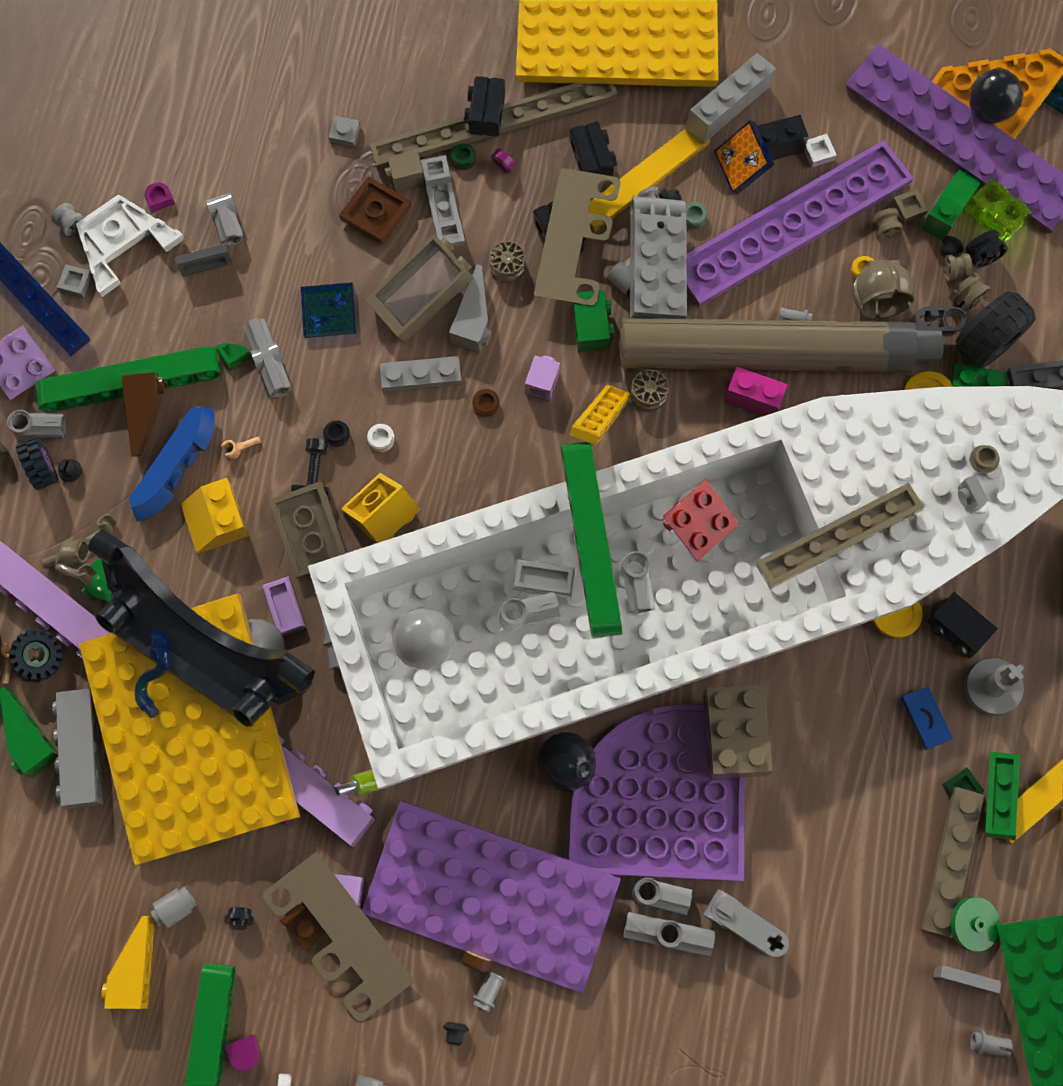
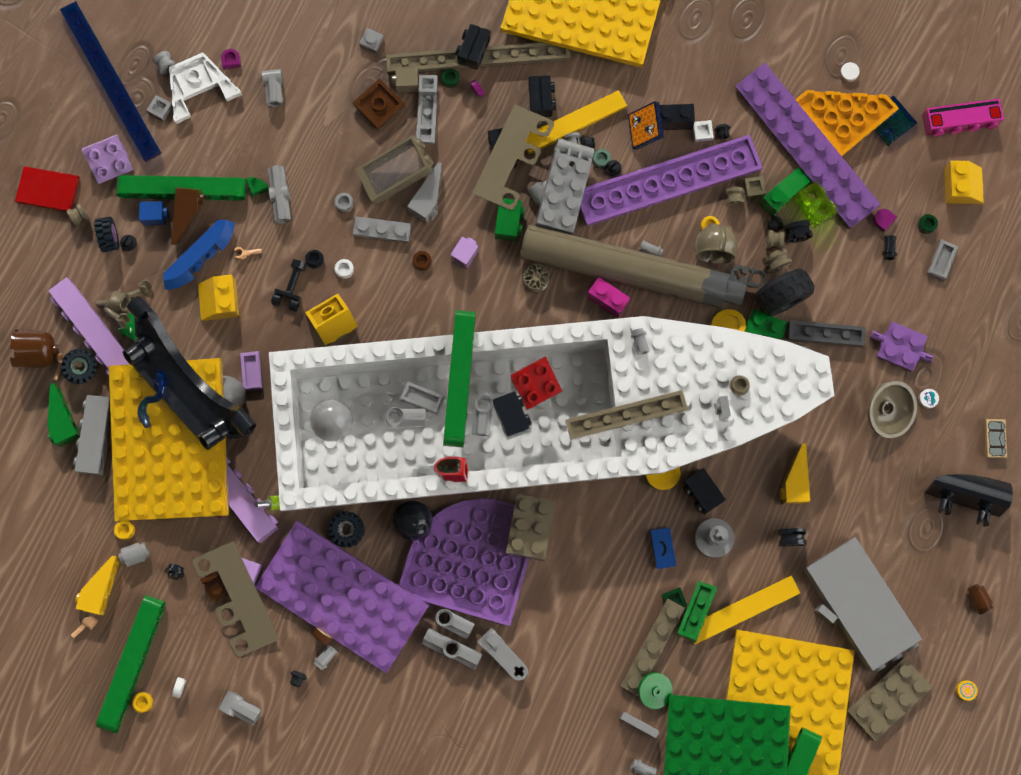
camera: 10 degrees right, 5 degrees up
(38, 425) = (113, 207): light grey piece -> none
(96, 421) = (153, 213): none -> blue brick
(126, 1024) = (88, 622): none -> light nougat hand
(151, 875) = (124, 530): none -> yellow tile
(203, 260) = (251, 114): dark grey tile -> none
(243, 1053) = (158, 658): magenta tile -> none
(307, 527) = (279, 322): dark tan plate -> none
(328, 310) = (329, 169): tile -> none
(359, 349) = (344, 202): none -> light grey tile
(487, 792) = (357, 529): none -> black bush
(507, 262) = (461, 163): dark tan wheel -> none
(600, 415) = (492, 291): yellow tile -> none
(614, 668) = (452, 469): none -> red rock
(679, 573) = (511, 415): none -> black brick
(714, 223) = (613, 168): none -> black piece
(730, 98) = (648, 79): light grey brick -> none
(830, 430) = (640, 341): none -> light grey pin
(845, 144) = (722, 130): none -> black piece
(989, 35) = (849, 72): none -> white tile
(996, 95) = (835, 122): black piece -> none

